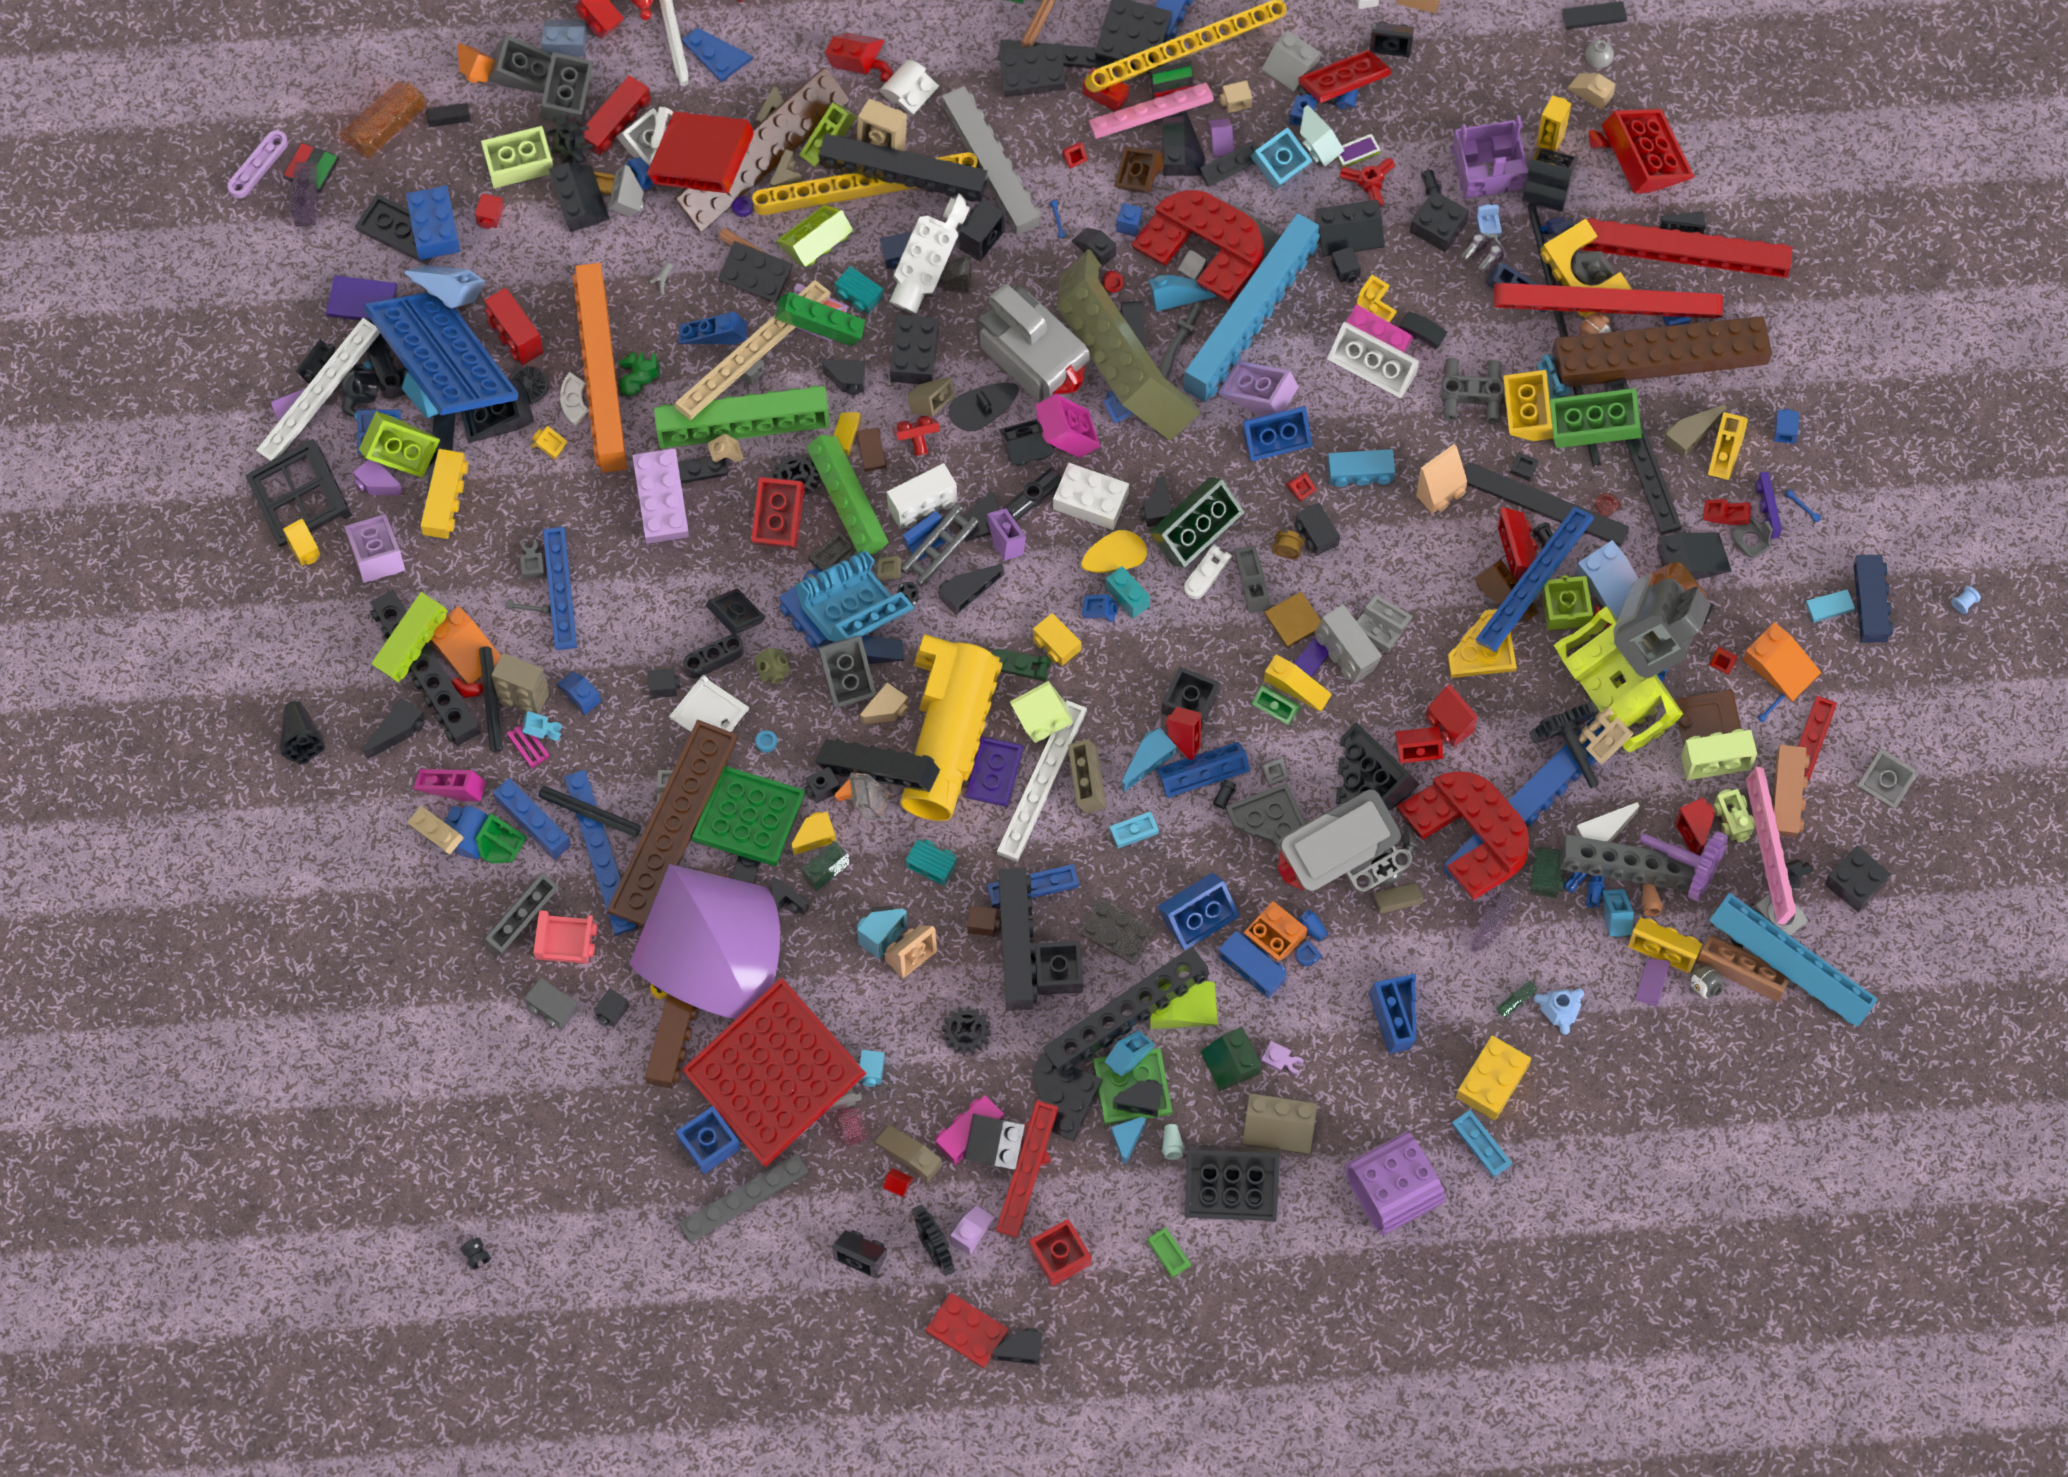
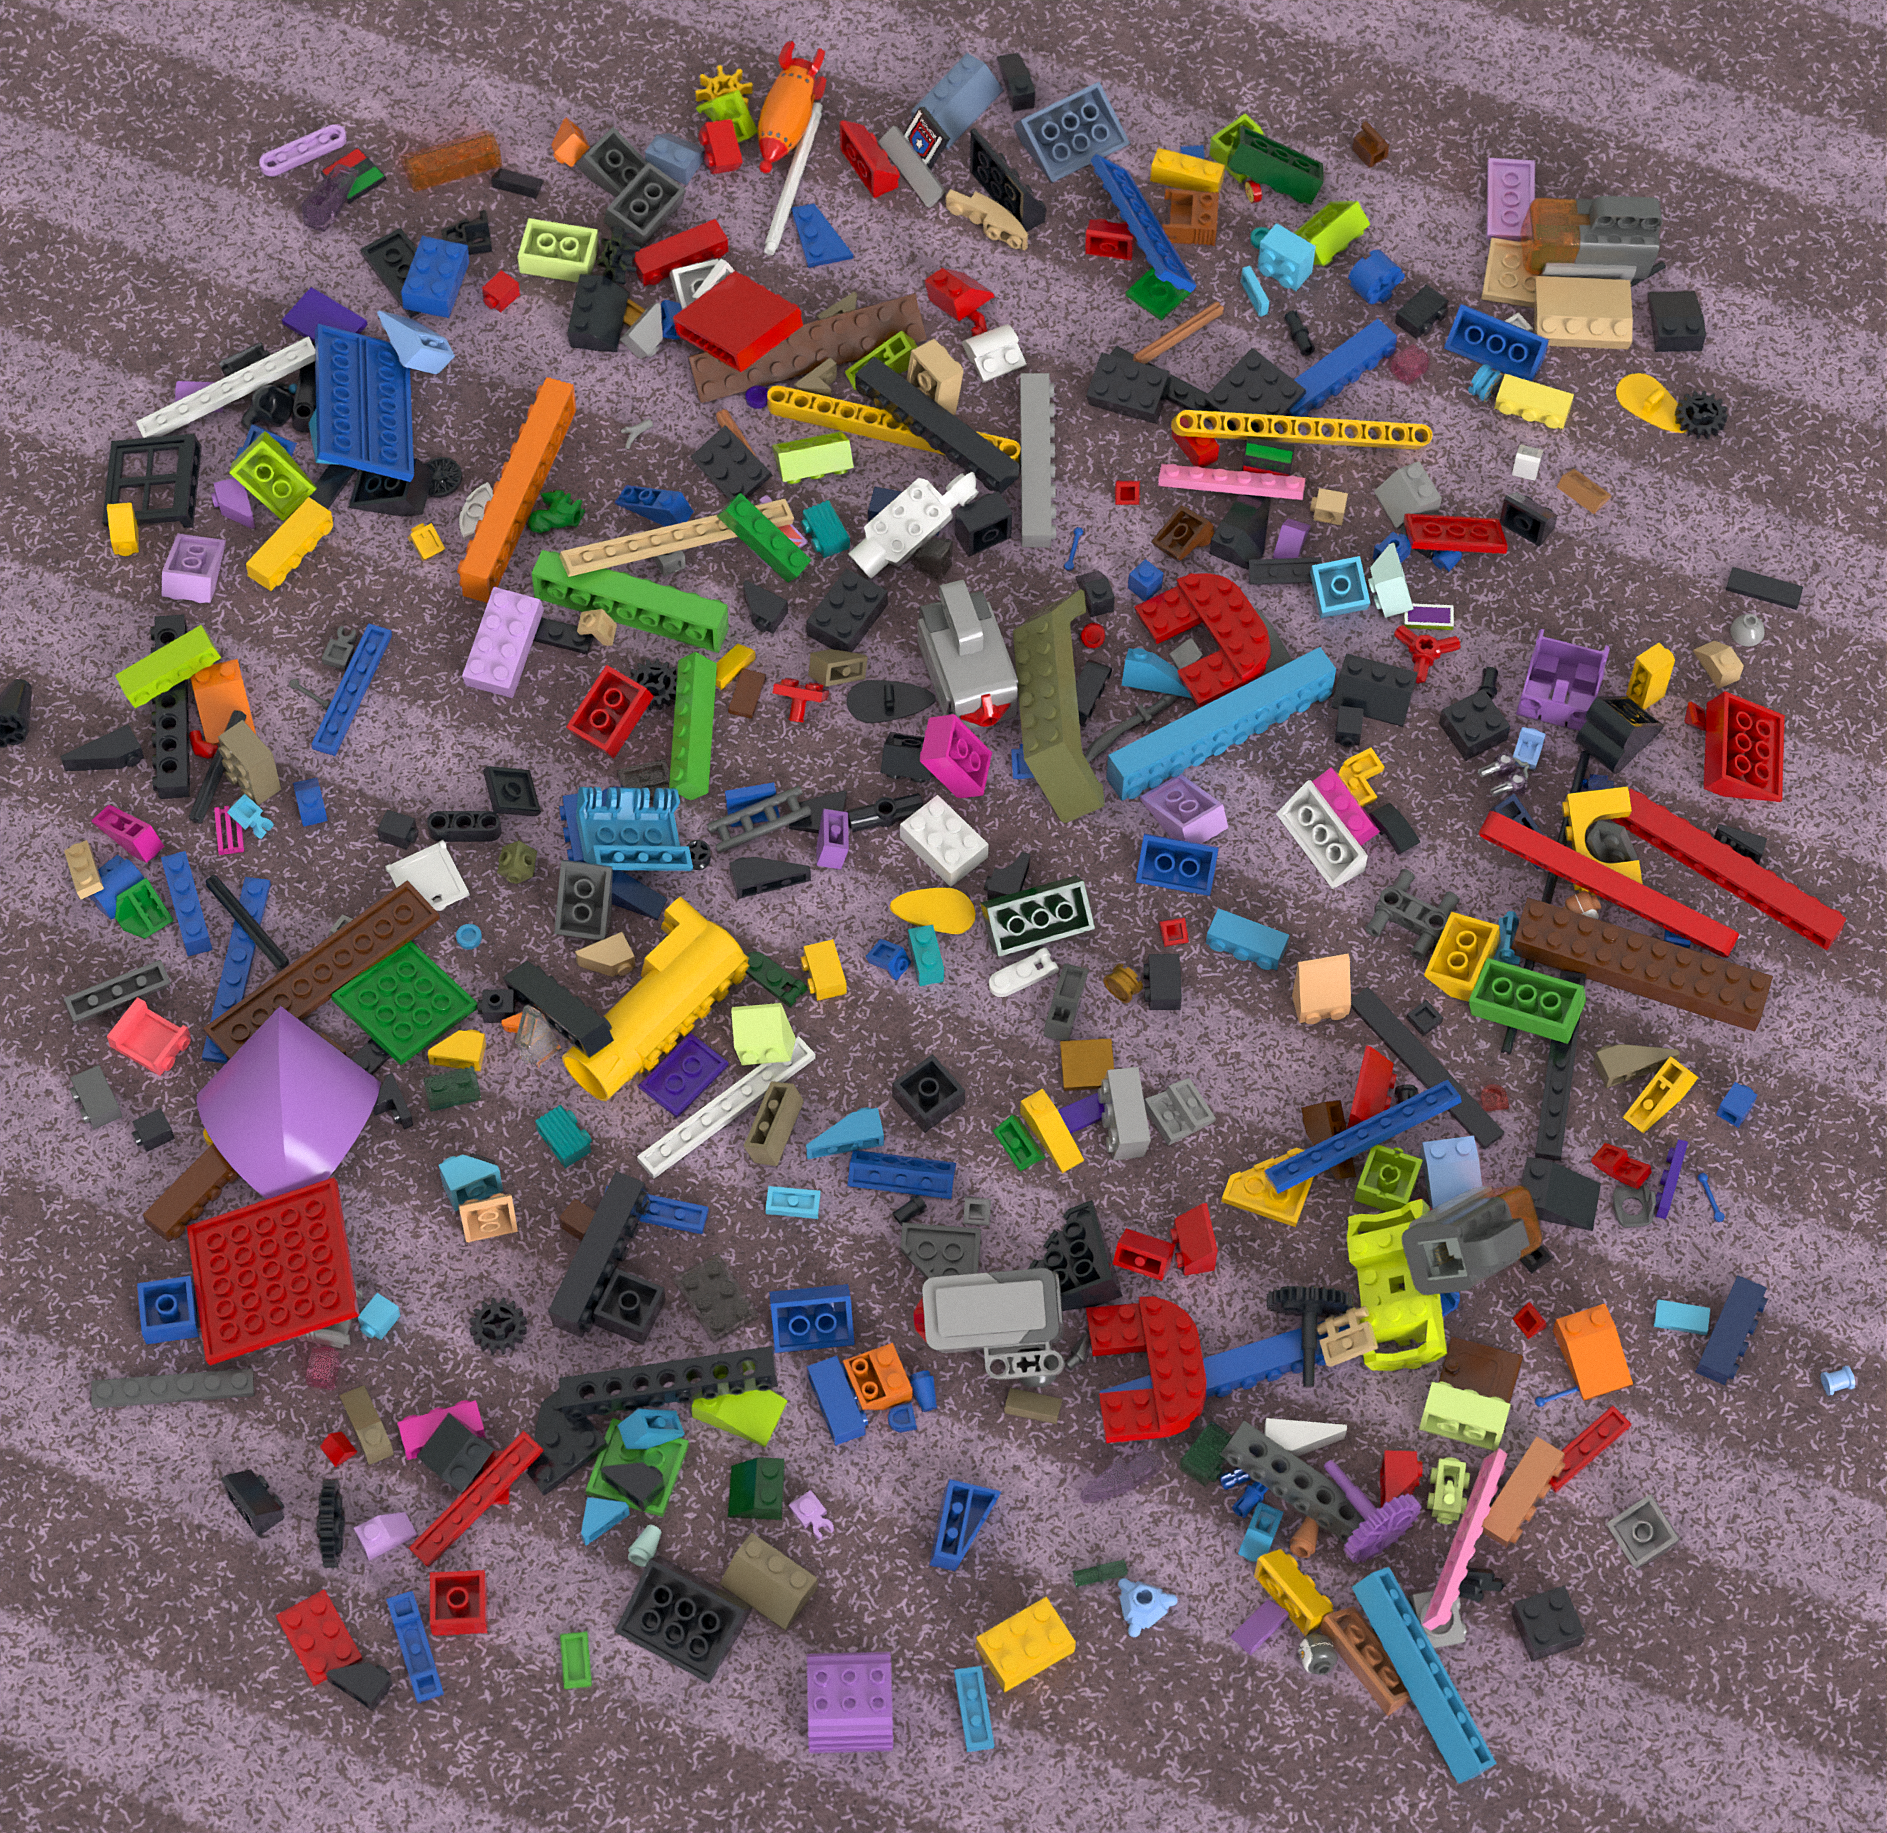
camera: 25 degrees right, 5 degrees down
(431, 173) = (467, 231): none -> black slope
(513, 327) = (453, 412): red brick -> none
(889, 568) = (694, 819): dark tan plate -> none
(922, 496) = (767, 761): white brick -> none
(1044, 1302) = (415, 1646): none -> blue slope
(1185, 731) = (901, 1124): red slope -> none

